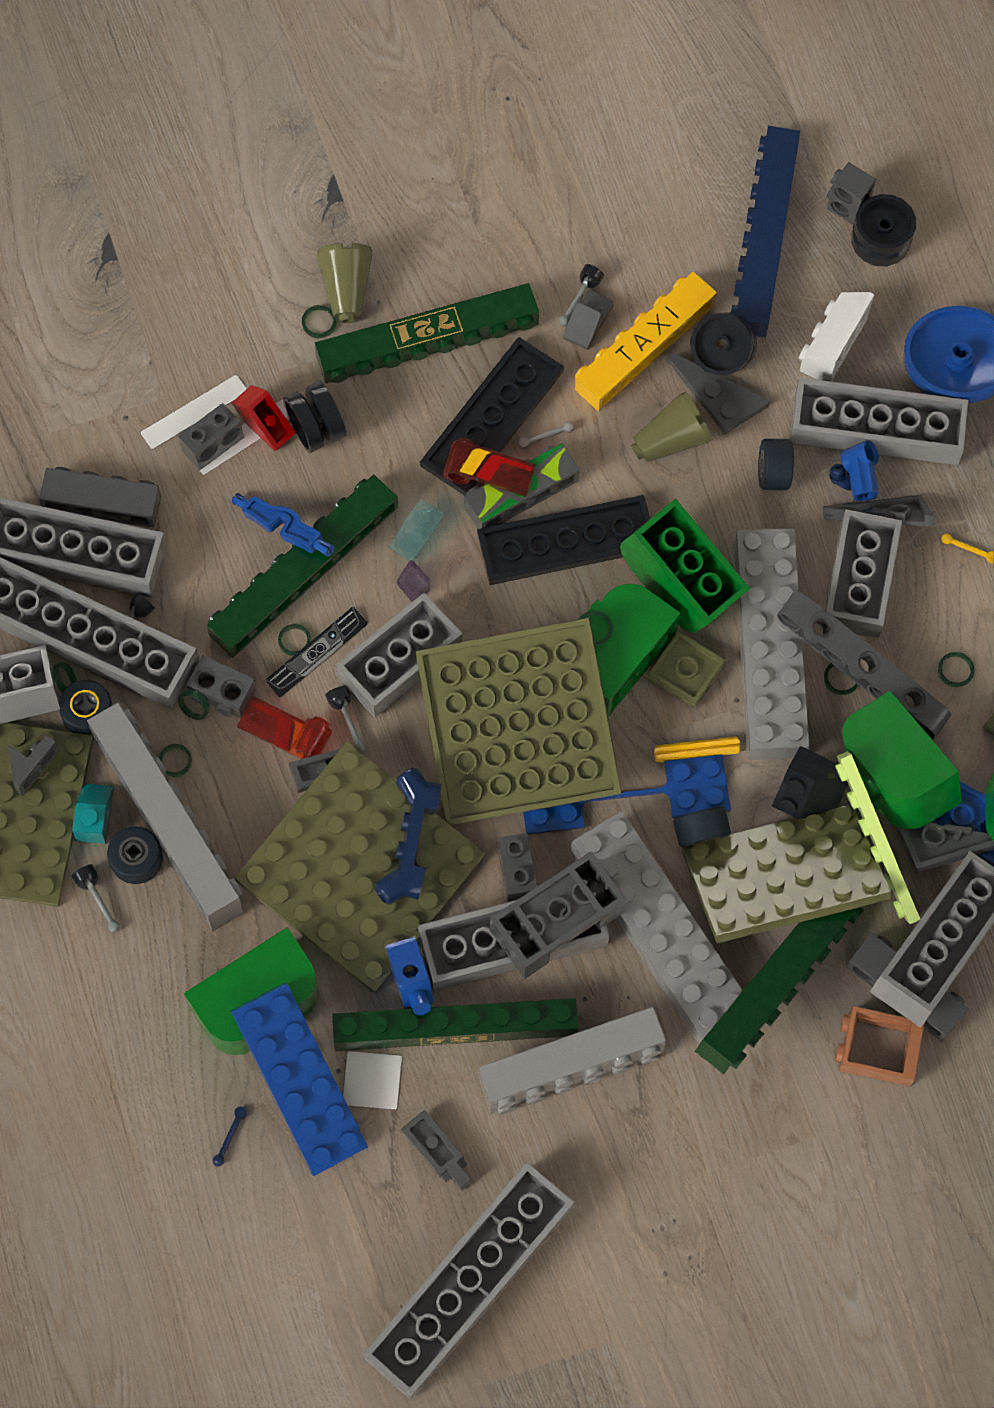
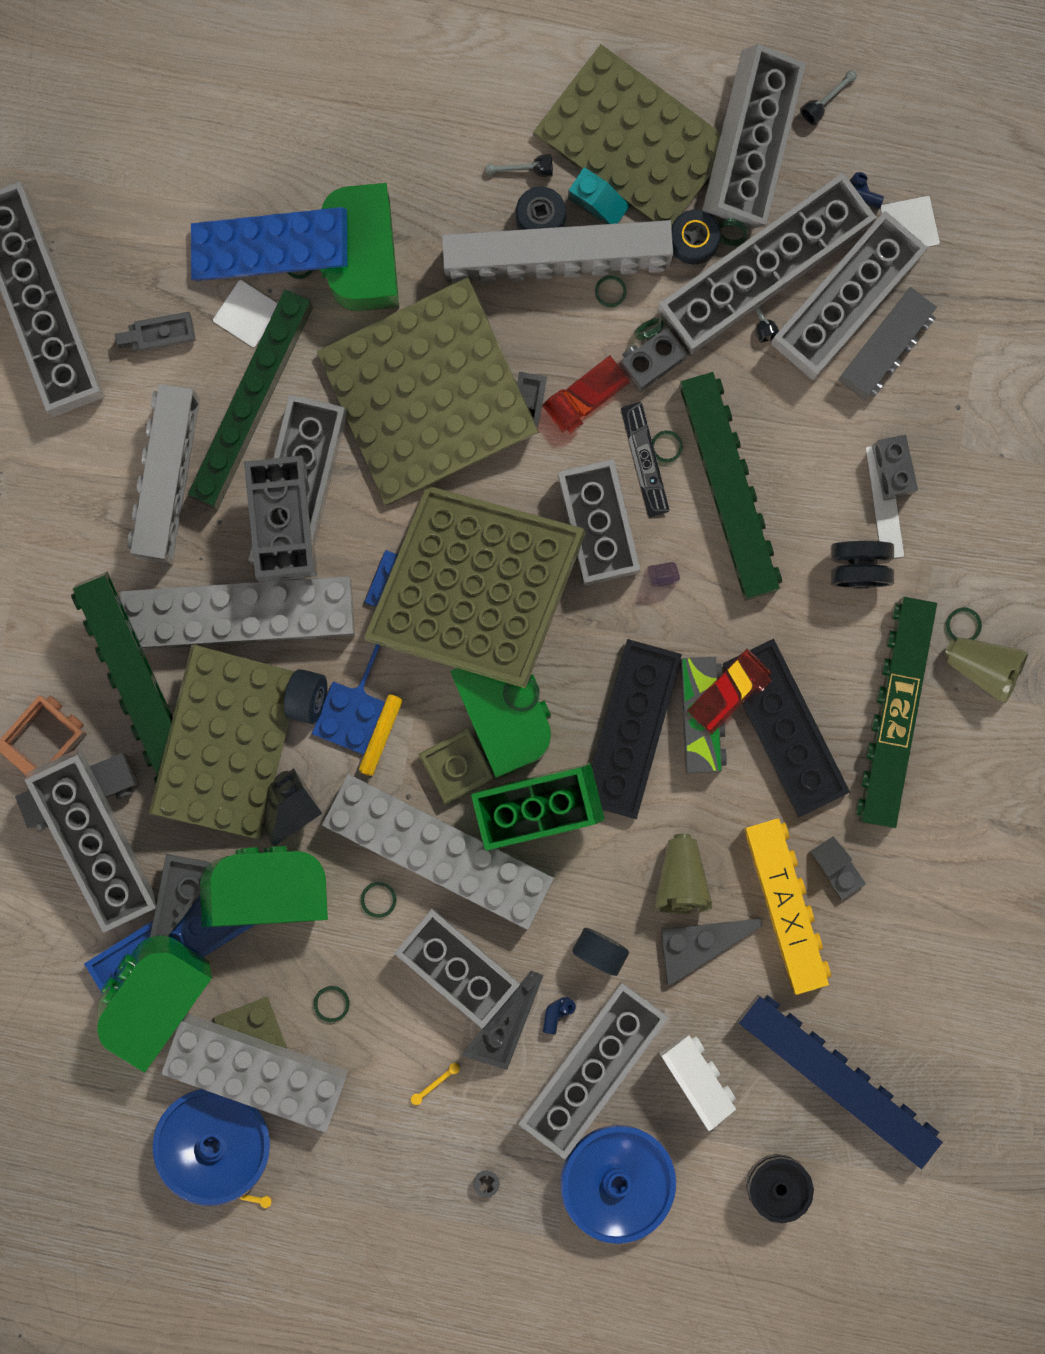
camera: 120 degrees right, 15 degrees up
(28, 769) = (661, 154): dark grey slope -> none
(192, 412) = (932, 469): white sticker -> none
(240, 1114) = (277, 193): dark blue hinge -> none
(263, 416) = (891, 522): red slope -> none
(293, 531) = (762, 491): blue piece -> none
(339, 699) = (588, 454): hinge -> none
(407, 878) = (390, 421): dark blue plate -> none
(413, 985) = (304, 379): blue torso -> none
(416, 530) = (710, 601): clear light blue slope -> none
(516, 865) = (355, 522): dark grey brick -> none
(524, 442) = (746, 745): light grey hinge -> none
(589, 278) = (876, 890): hinge -> none
(740, 343) = (740, 970): black wheel -> none
(846, 650) = (384, 908): dark grey beam -> none
(849, 191) = (832, 1178): dark grey brick -> none
(860, 463) = (561, 1028): blue piece -> none
(871, 826) = (217, 833): yellowish green plate -> none

